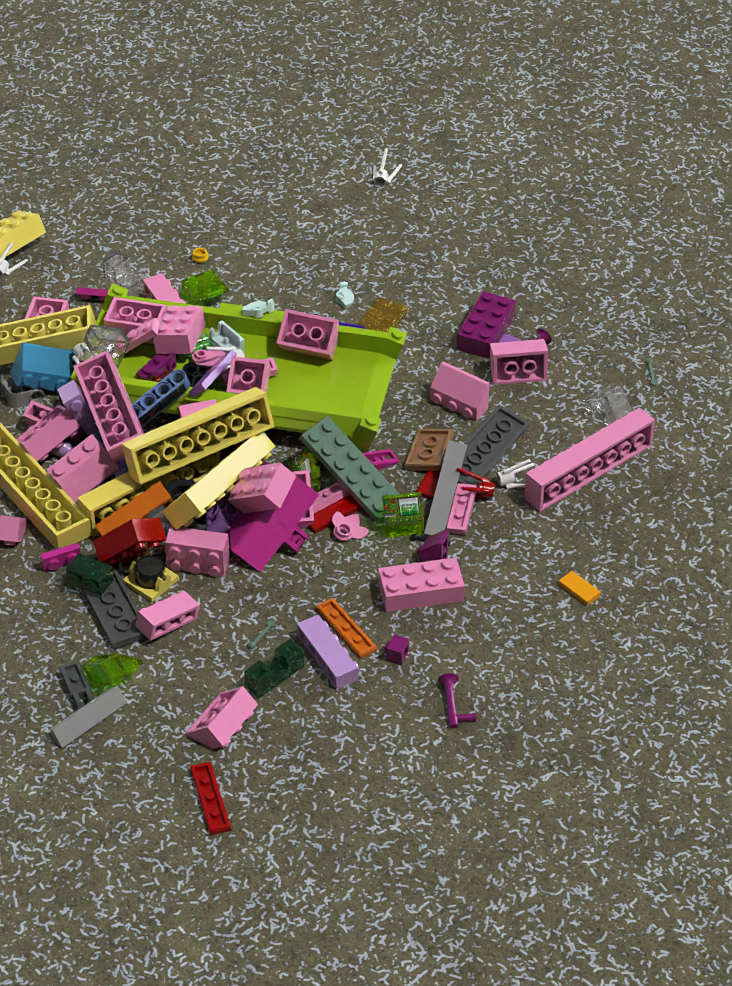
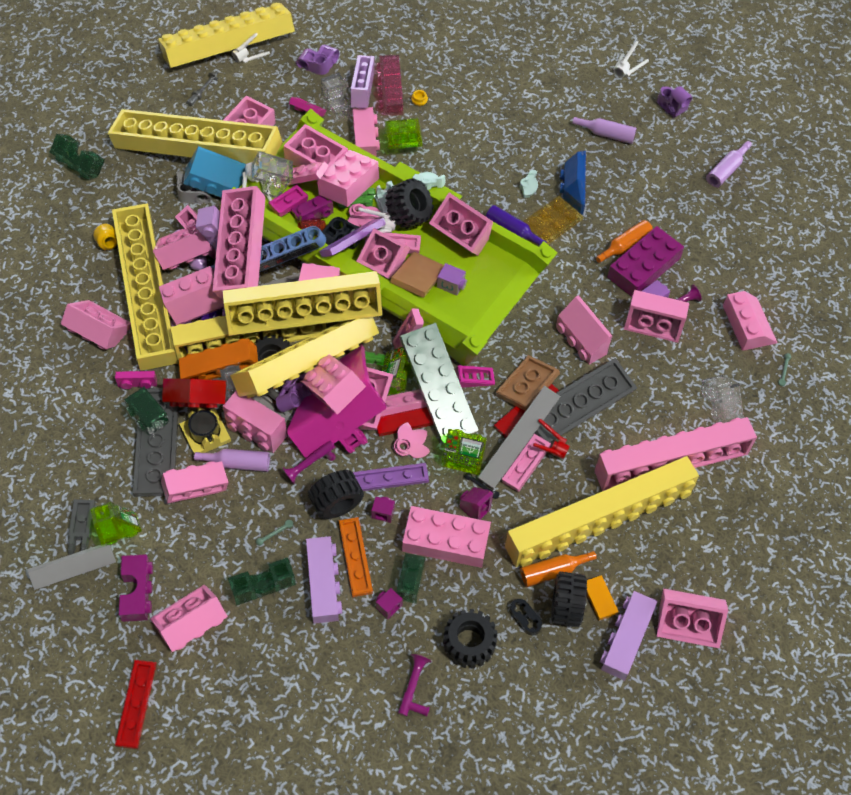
camera: 20 degrees right, 15 degrees up
(82, 252) = (320, 61): none -> medium lavender piece
(131, 365) = (285, 202): none -> dark pink plate
(141, 254) = (362, 82): none -> lavender brick
(153, 699) = (136, 605): none -> magenta arch
(166, 251) = (390, 85): none -> clear pink brick
(197, 587) = (238, 459): none -> lavender piece
(250, 332) = (409, 203): none -> black tyre
(274, 555) = (325, 450): none -> magenta piece
(288, 387) = (417, 274): none -> medium nougat tile
(304, 423) = (412, 322): none -> bright pink plate
(305, 580) = (336, 494): none -> black tyre
(320, 383) = (451, 279): none -> medium lavender brick
(342, 561) = (392, 477): none -> medium lavender tile
(352, 583) = (383, 509): none -> magenta plate
(386, 280) = (574, 181): none -> blue wedge
(395, 230) = (608, 129): none -> lavender piece
(407, 623) = (411, 577): none -> clear green brick
(444, 190) = (674, 101): none -> medium lavender piece
(459, 313) = (626, 240): none -> orange piece
(483, 661) = (464, 654): none -> black tyre
(507, 476) = (586, 441): white plant -> none
(520, 229) = (727, 166): none -> lavender piece
(522, 622) = (522, 620): none -> black beam
(527, 578) = (549, 568): none -> orange piece
(547, 521) = (600, 512): none -> light yellow brick
(555, 590) = (569, 599): none -> black tyre
(600, 344) = (748, 321): none -> bright pink slope
(619, 604) = (628, 636): none -> lavender brick
(665, 576) = (691, 618): none -> bright pink slope

